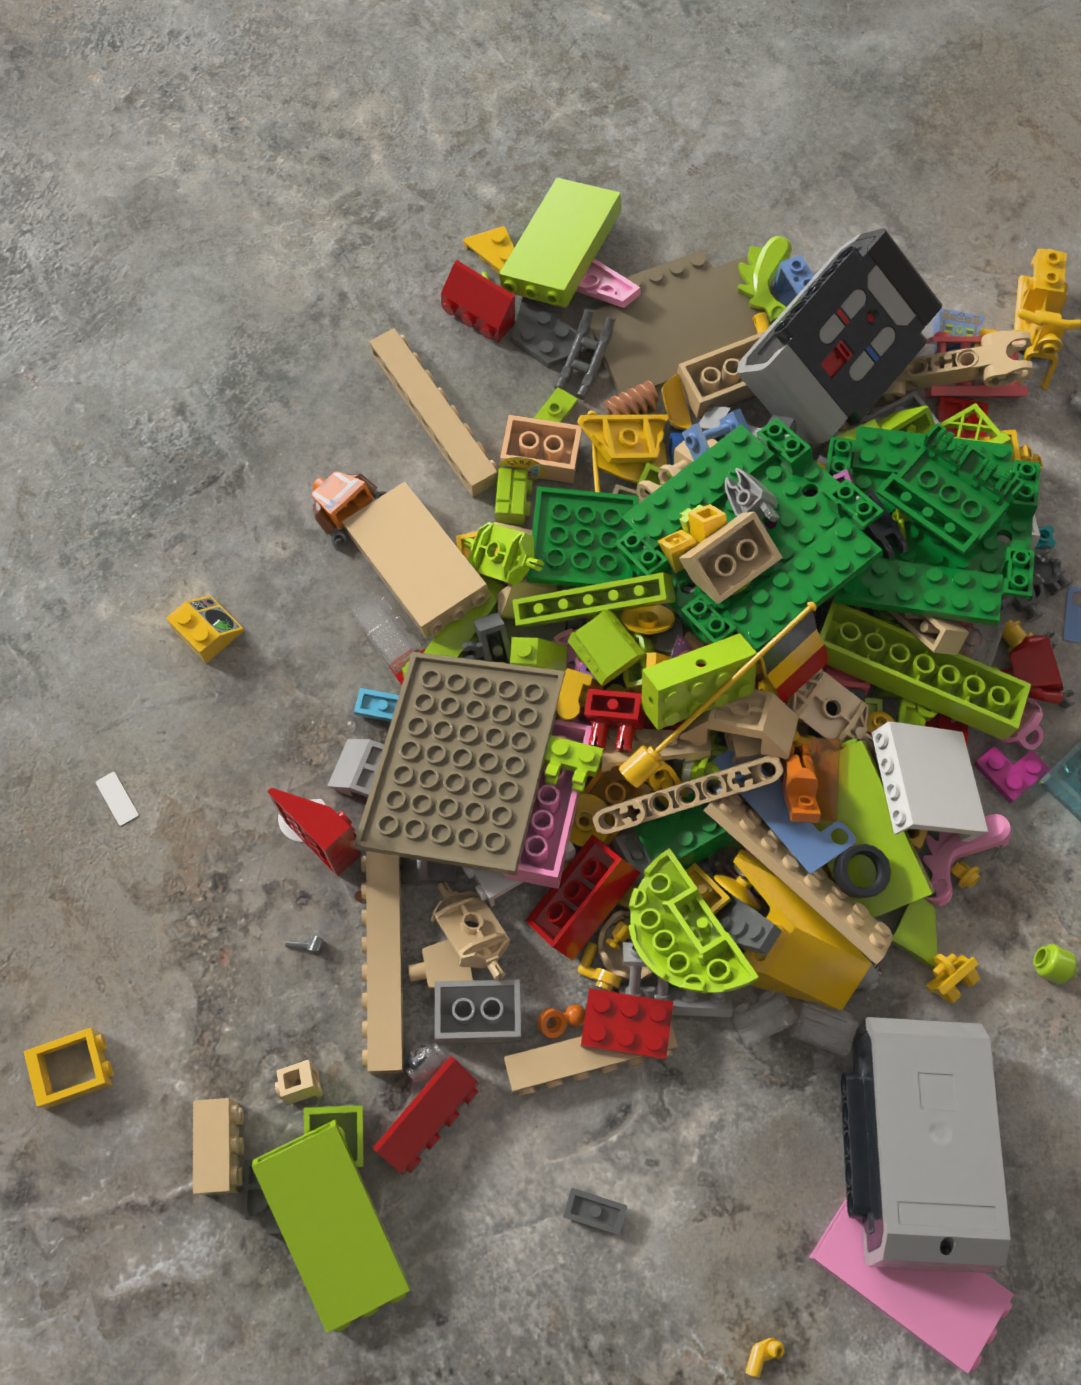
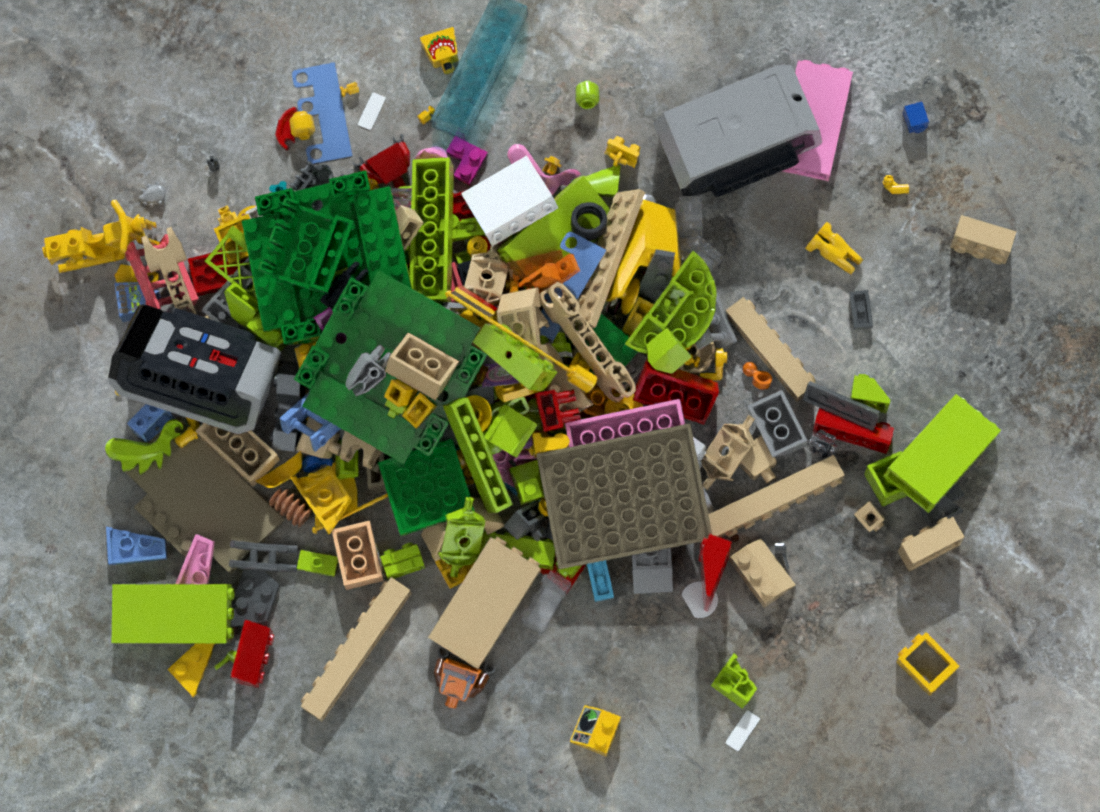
camera: 105 degrees left, 5 degrees up
(177, 812) = (734, 683): none -> lime slope
(295, 906) = (761, 572): none -> tan slope
(461, 1109) = (841, 405): none -> dark grey plate
(465, 1156) = (869, 393): none -> lime slope
(572, 756) = (593, 422): lime plate -> none
(627, 1024) = (744, 331): red plate -> none
(633, 894) = (666, 352): none -> lime slope
(658, 238) = (130, 547): none -> medium blue wing
(696, 1216) = (836, 251): none -> yellow piece

